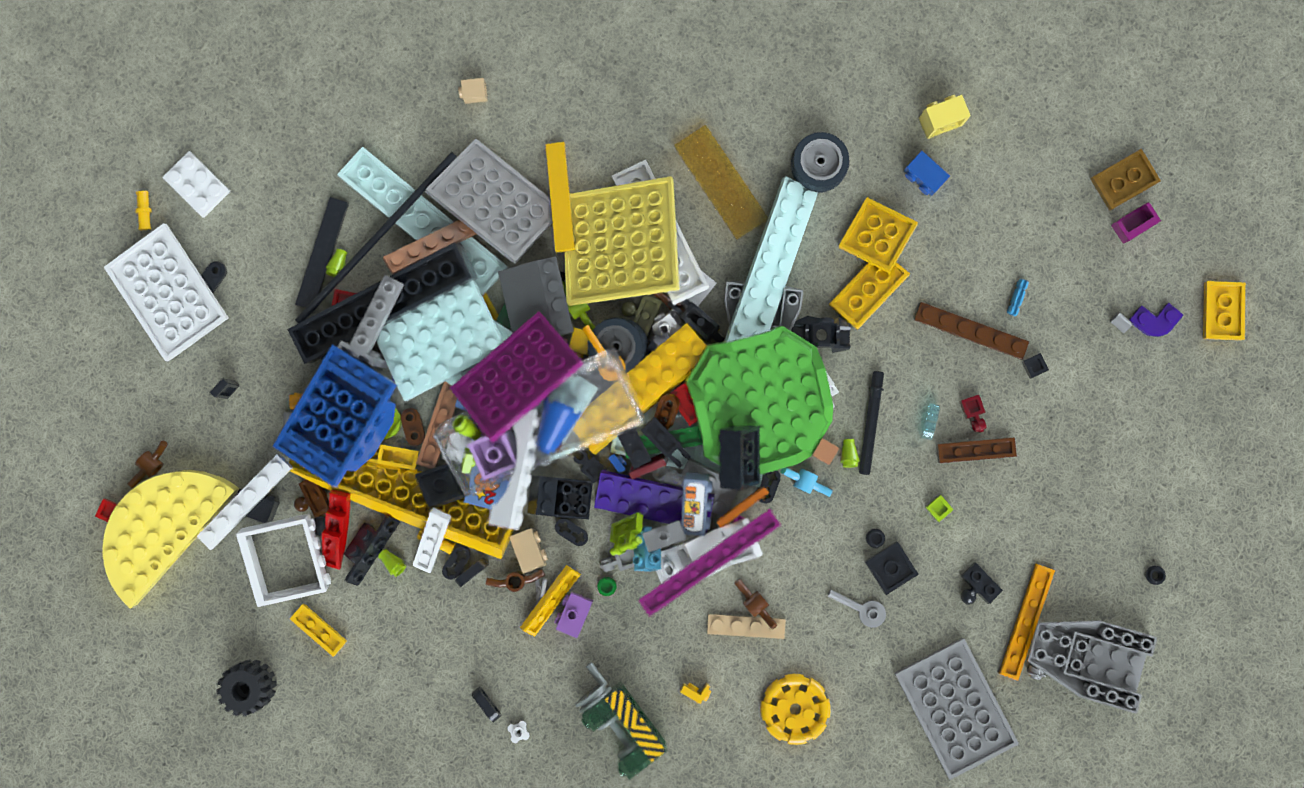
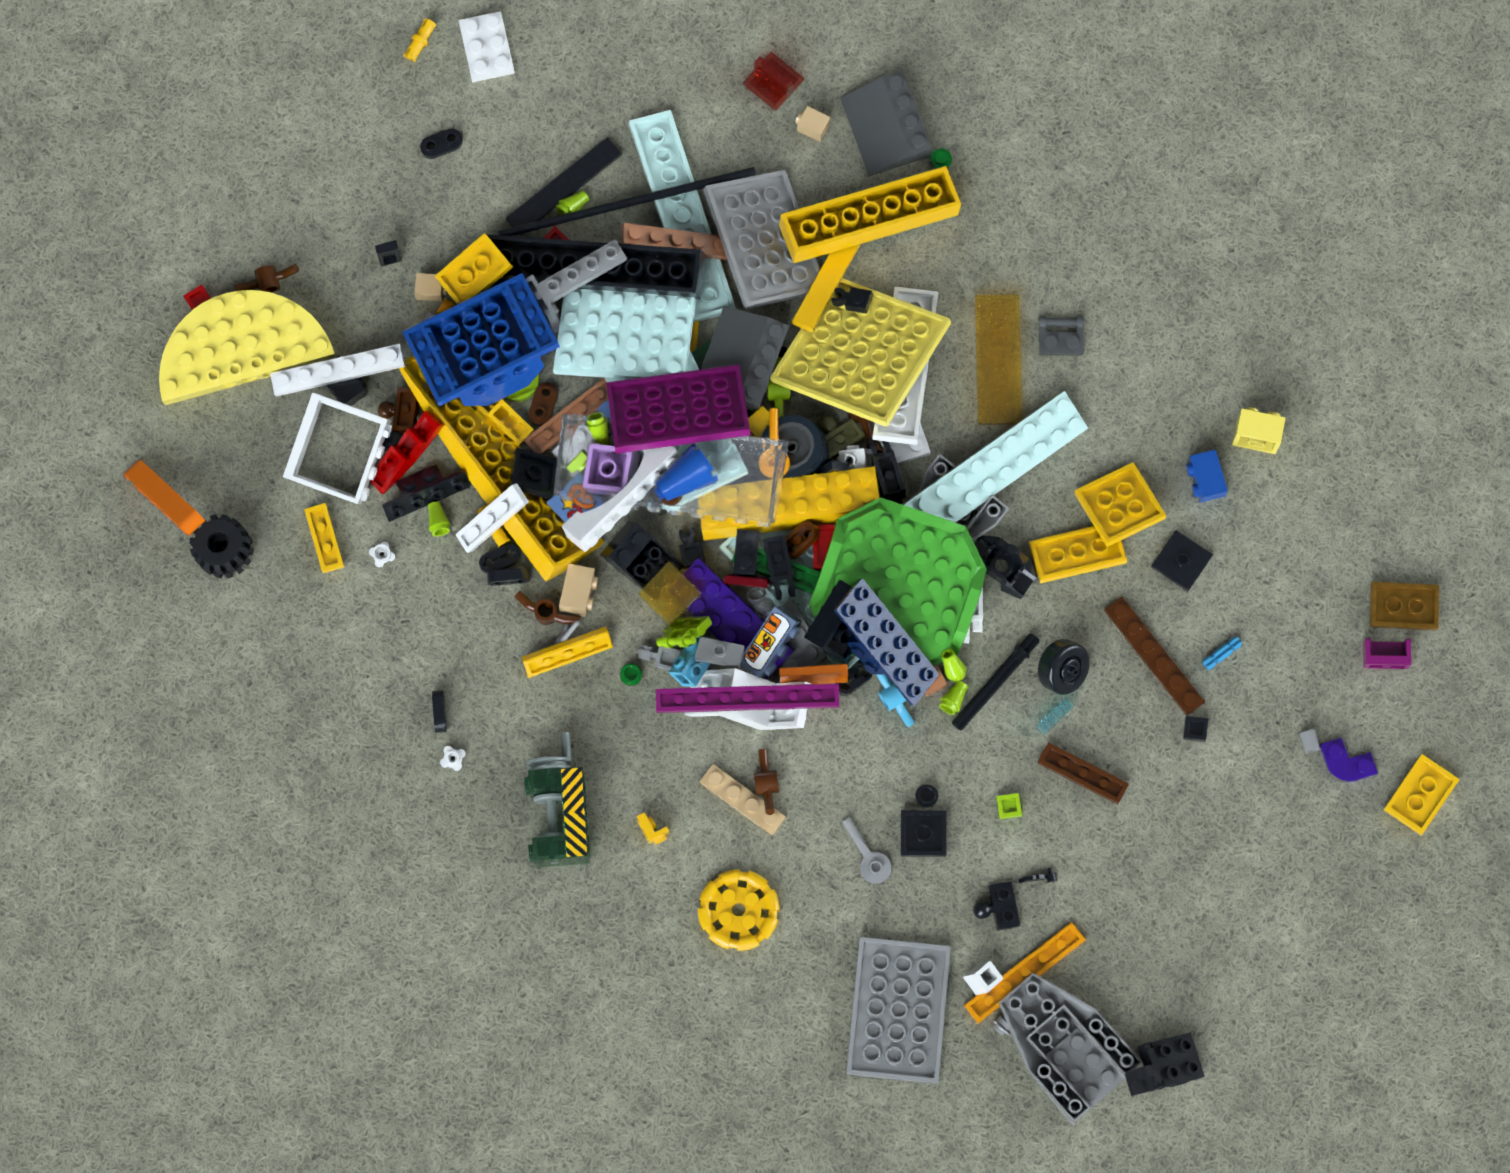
camera: 25 degrees right, 10 degrees down
(166, 292) = (391, 129): white plate -> none
(180, 680) = (164, 497): none -> orange beam
(273, 393) = (428, 288): none -> tan brick
(296, 363) = (474, 270): none -> yellow plate
(370, 620) = (381, 548): none -> white plate
(423, 77) = (773, 81): none -> clear red bracket
(527, 56) = (886, 124): none -> dark grey slope
(559, 133) = (869, 214): none -> yellow brick
(568, 536) = (626, 604): black beam -> none
(574, 614) = (581, 679): medium lavender brick -> none
(583, 58) = (941, 158): none -> green plate
(591, 205) = (855, 300): none -> black plate
(597, 511) = (669, 593): none -> clear yellow plate
(618, 462) = (721, 562): blue plate -> none
(758, 140) = (1061, 342): none -> dark grey plate
(781, 453) = (884, 644): none -> bracket
(818, 176) = (1104, 415): wheel -> none
(835, 432) = (953, 666): none -> lime cone
(914, 381) = (1063, 666): none -> black wheel
(946, 247) = (1182, 560): none -> black plate
(973, 408) = (1106, 731): dark red plate -> none
(1000, 540) = (1051, 877): none -> black piece
(1003, 648) = (983, 977): none -> white brick
(1161, 575) = (1191, 1009): black plate -> none
(1173, 625) = (1165, 1064): none -> black plate

